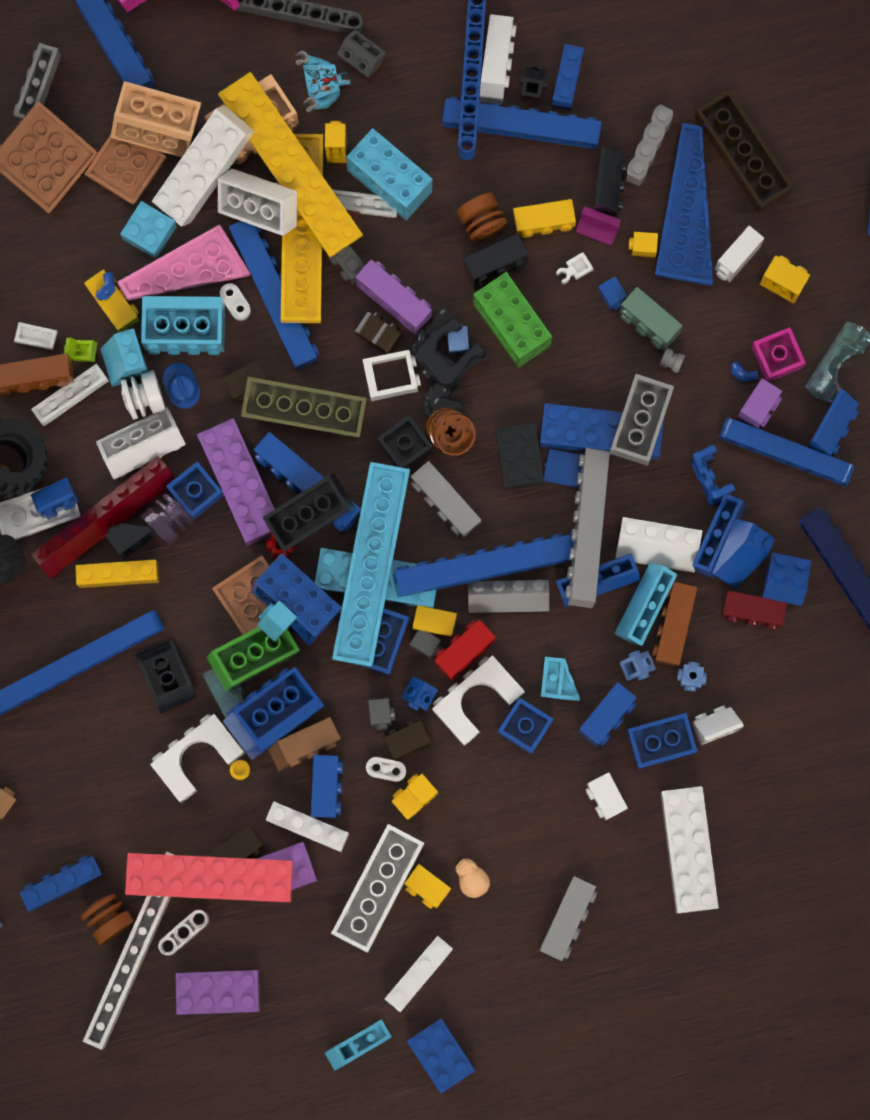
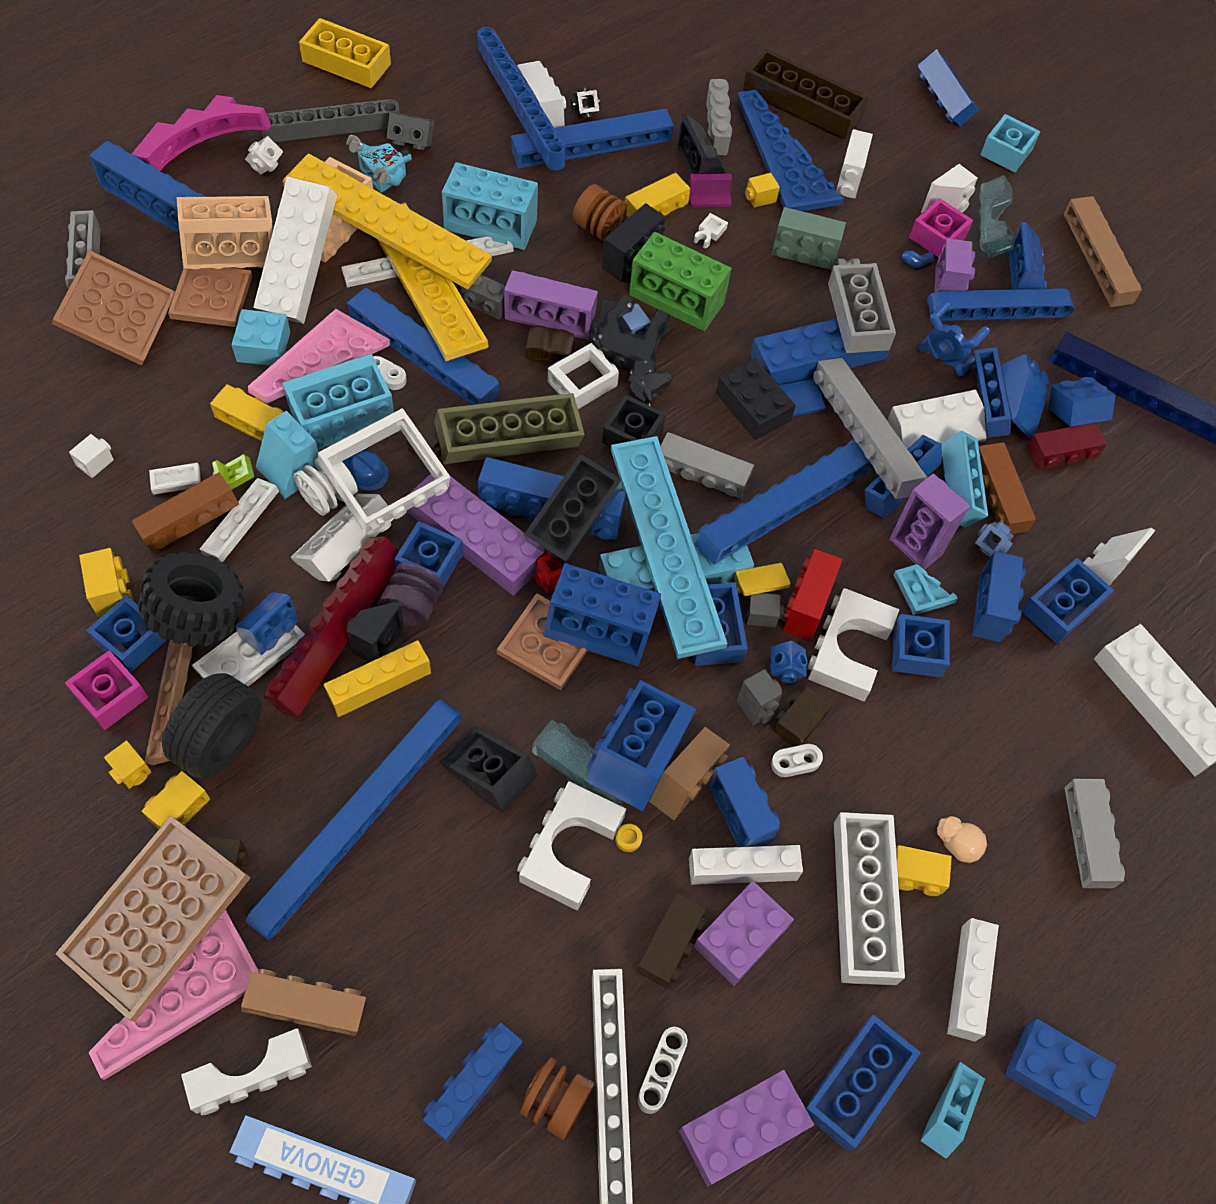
camera: 35 degrees left, 20 degrees down
(108, 288) = (239, 396): blue arm -> none
(184, 448) = (368, 436): none -> white window
(209, 877) = (665, 974): coral brick -> none
(222, 33) = (263, 155): none -> white brick
(250, 656) = (581, 693): bright green brick -> none
(257, 201) = (368, 262): white brick -> none
(276, 620) = (595, 635): medium azure brick -> none
(304, 1001) = (861, 1083): none -> blue brick
(336, 142) = (424, 191): yellow brick -> none
(415, 796) = (850, 766): yellow brick -> none
(457, 438) = (677, 393): dark orange wheel -> none
(508, 596) = (823, 526): light grey brick -> none
(567, 77) = (613, 89): blue brick -> none
(580, 635) = (929, 521): none -> medium lavender brick
(606, 796) = (1048, 683): white brick -> none
(612, 293) = (758, 236): blue brick -> none
(688, 683) = (1052, 528): medium blue brick -> none
(785, 278) = (907, 169): yellow brick -> none
(808, 322) = (953, 188): none -> white slope

